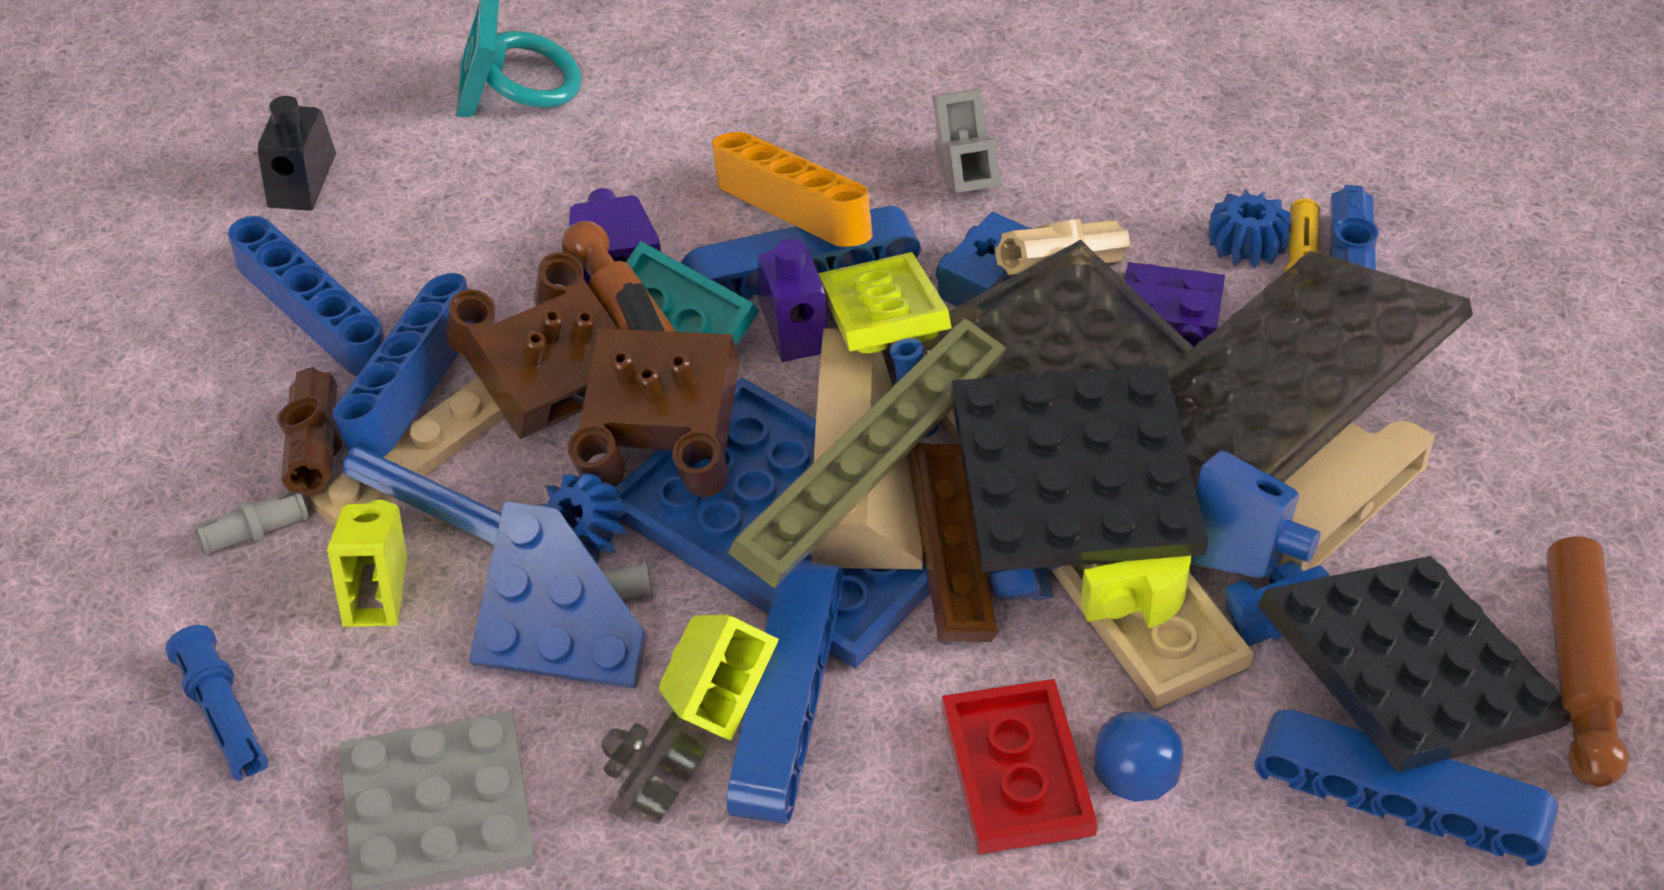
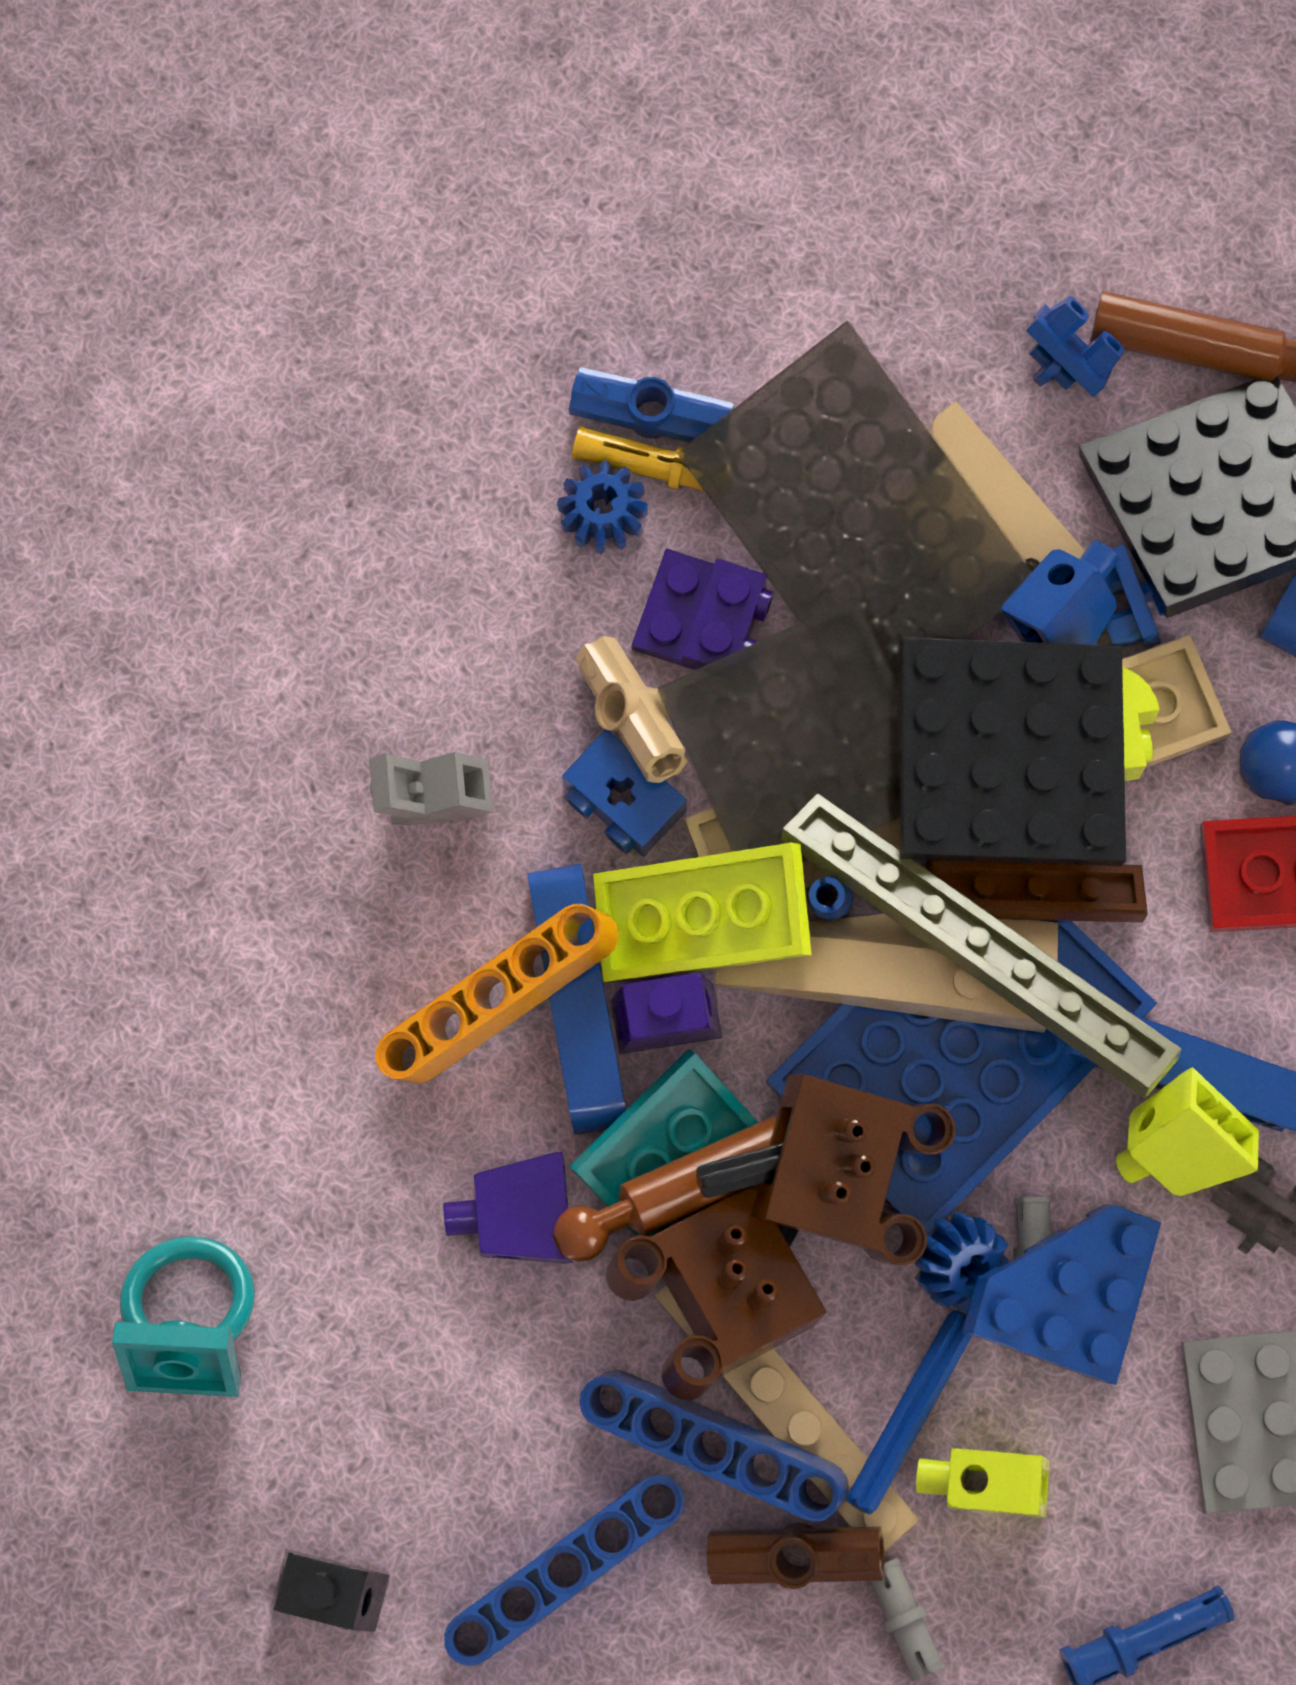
camera: 80 degrees left, 30 degrees up
(1524, 529) = (1067, 355): none -> blue hips

